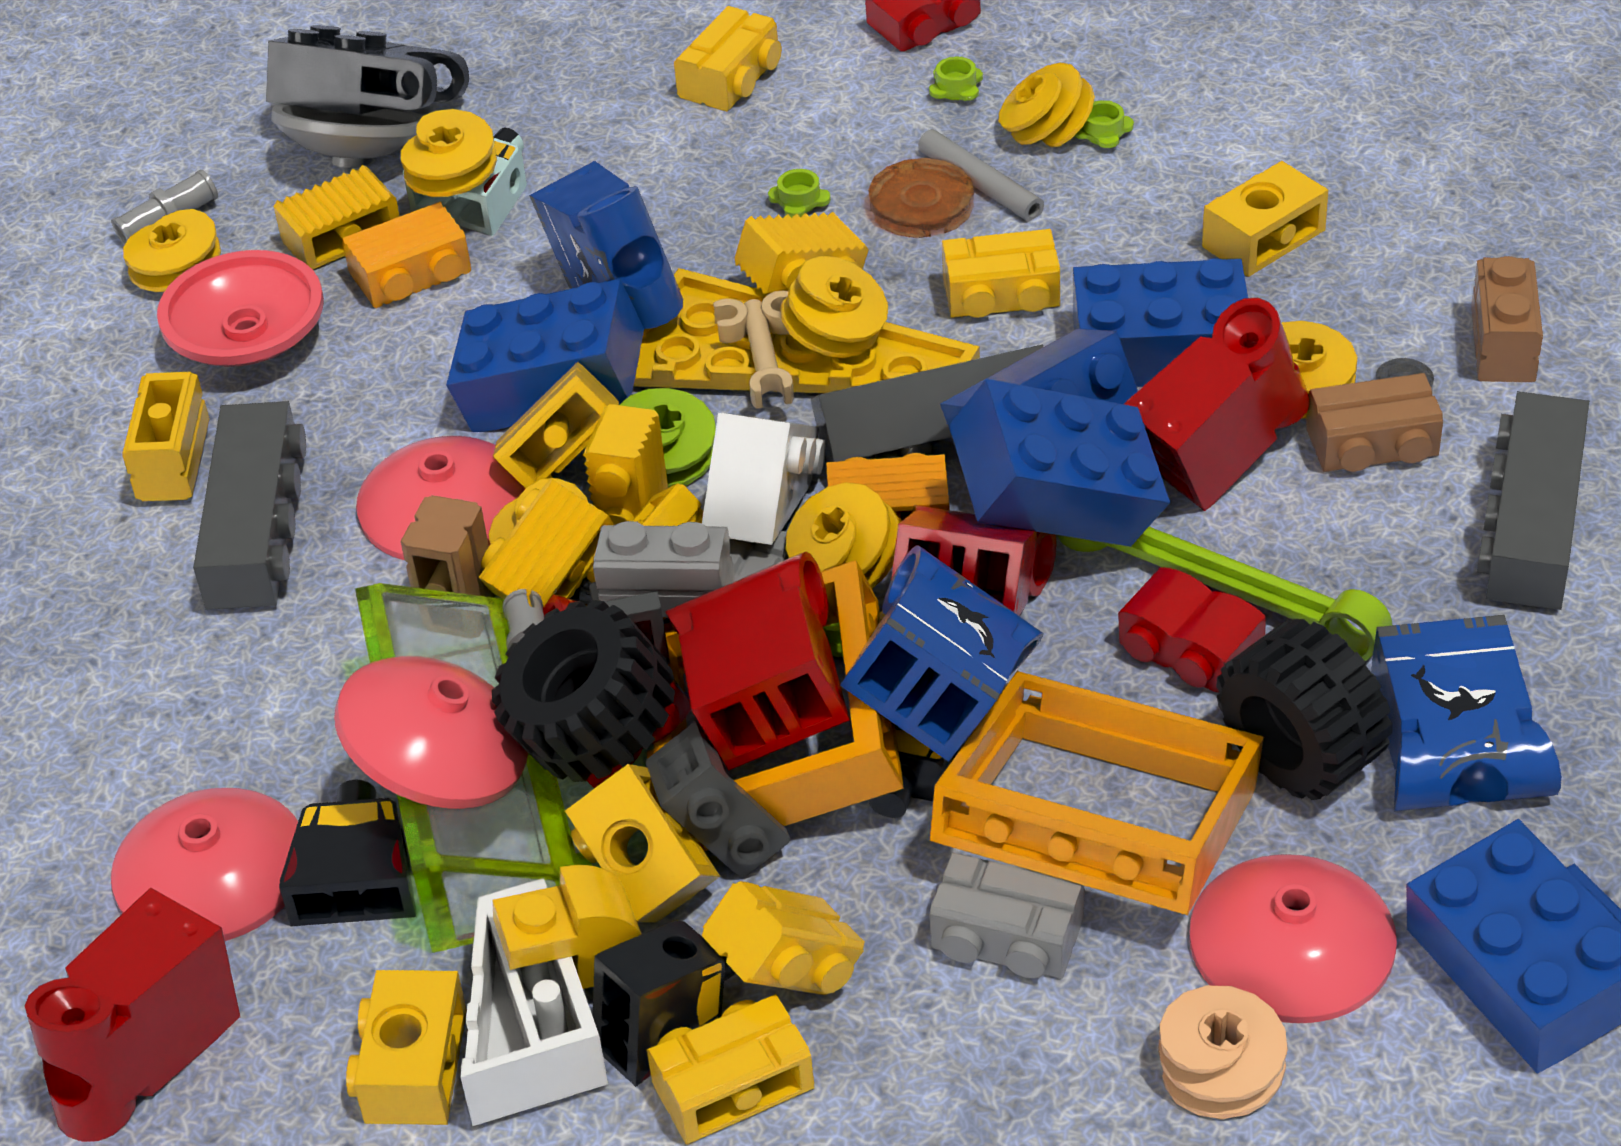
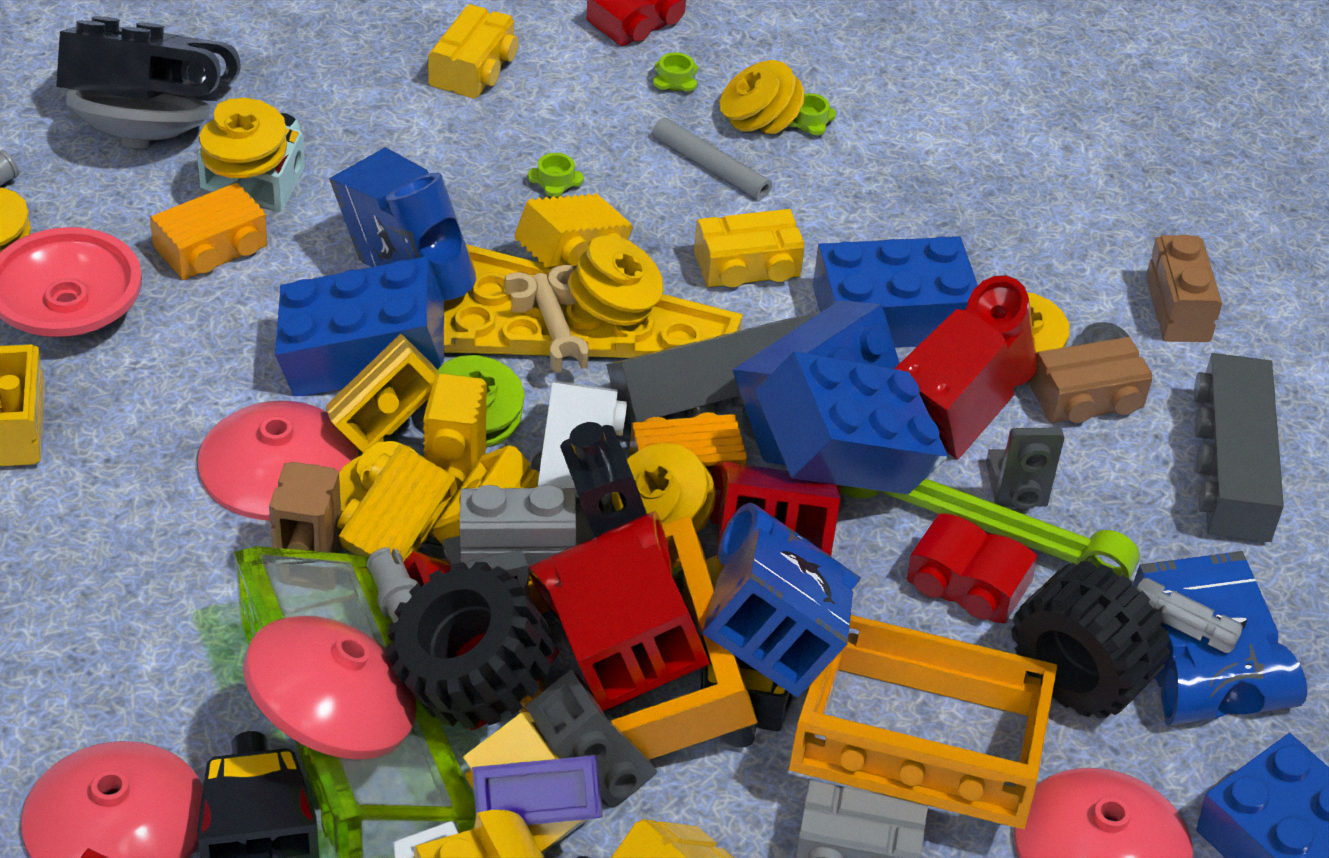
camera: 15 degrees left, 0 degrees up
(249, 506) = (102, 470): dark grey brick -> none
(320, 217) = (130, 194): yellow brick -> none
(644, 847) = (541, 789): none -> tile
(751, 505) = (598, 469): none -> black torso
(921, 197) = (663, 178): clear orange tile -> none
(1265, 217) = (965, 197): yellow brick -> none
(1272, 518) = (1026, 468): none -> dark grey bracket
(1422, 685) = (1192, 617): none -> light grey axle

